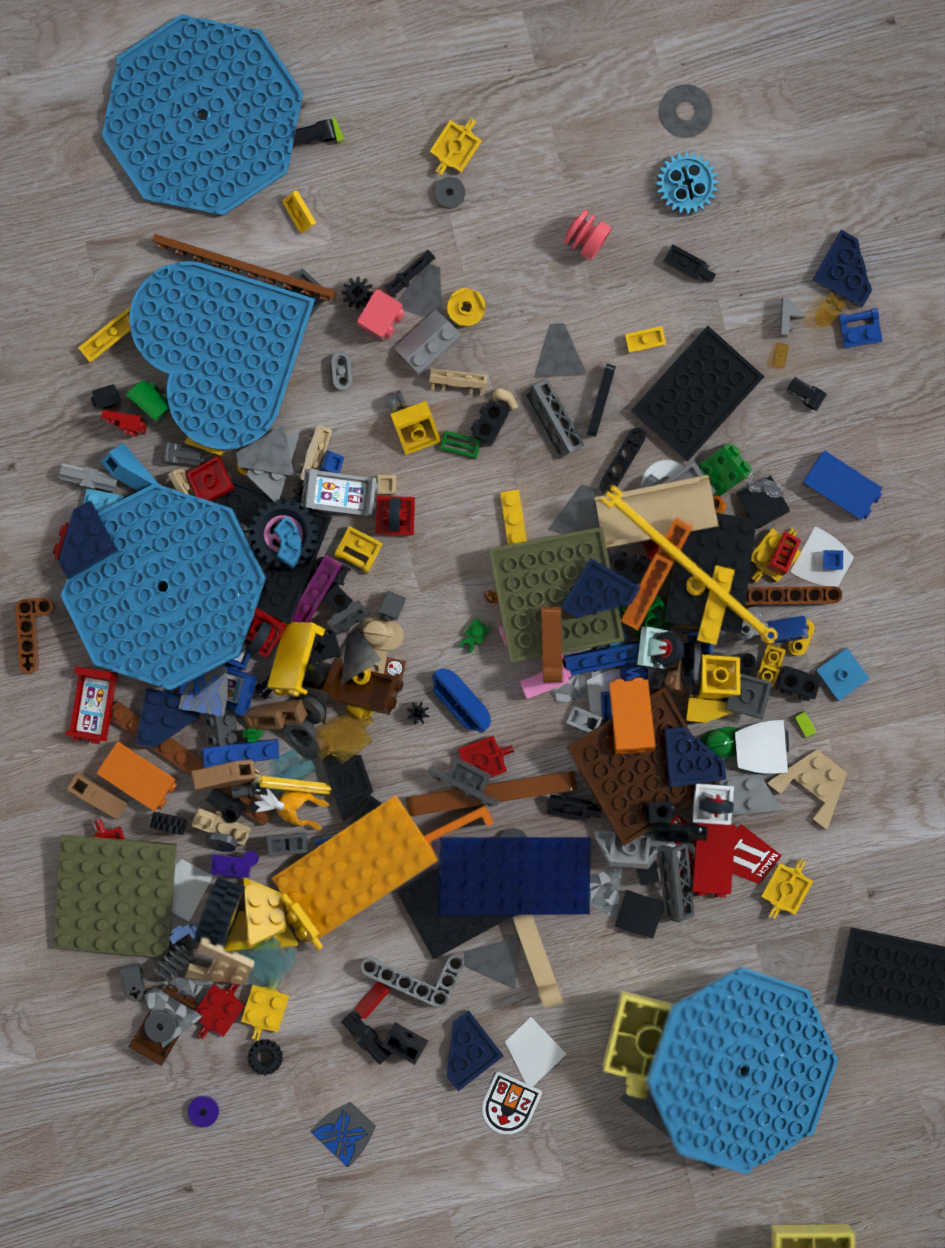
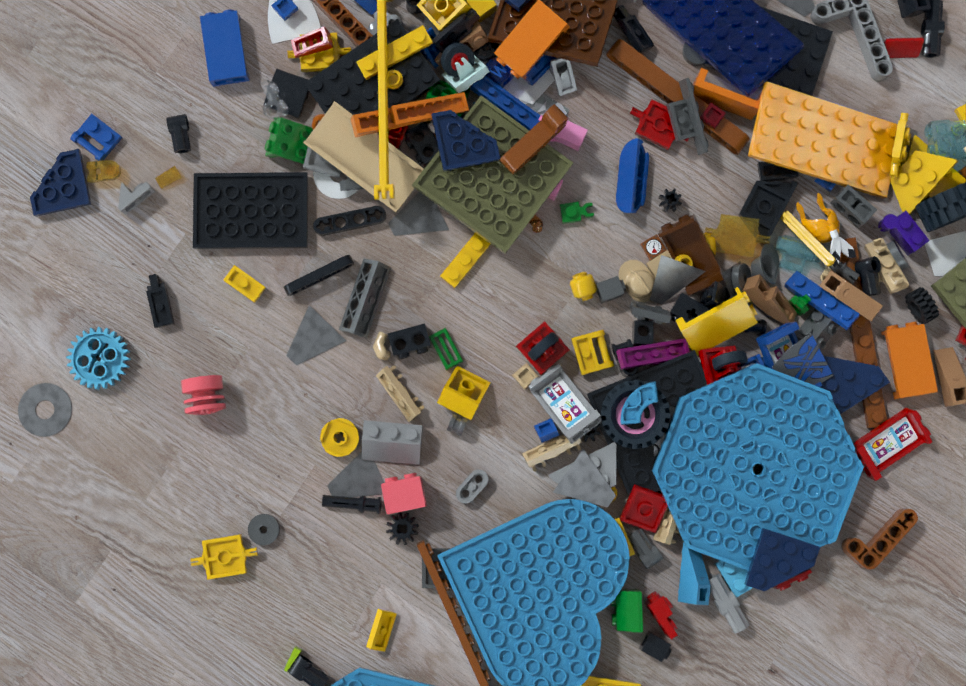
camera: 135 degrees left, 5 degrees down
(413, 588) = (583, 286): none -> yellow head
(451, 802) = (712, 116): none -> dark red tile

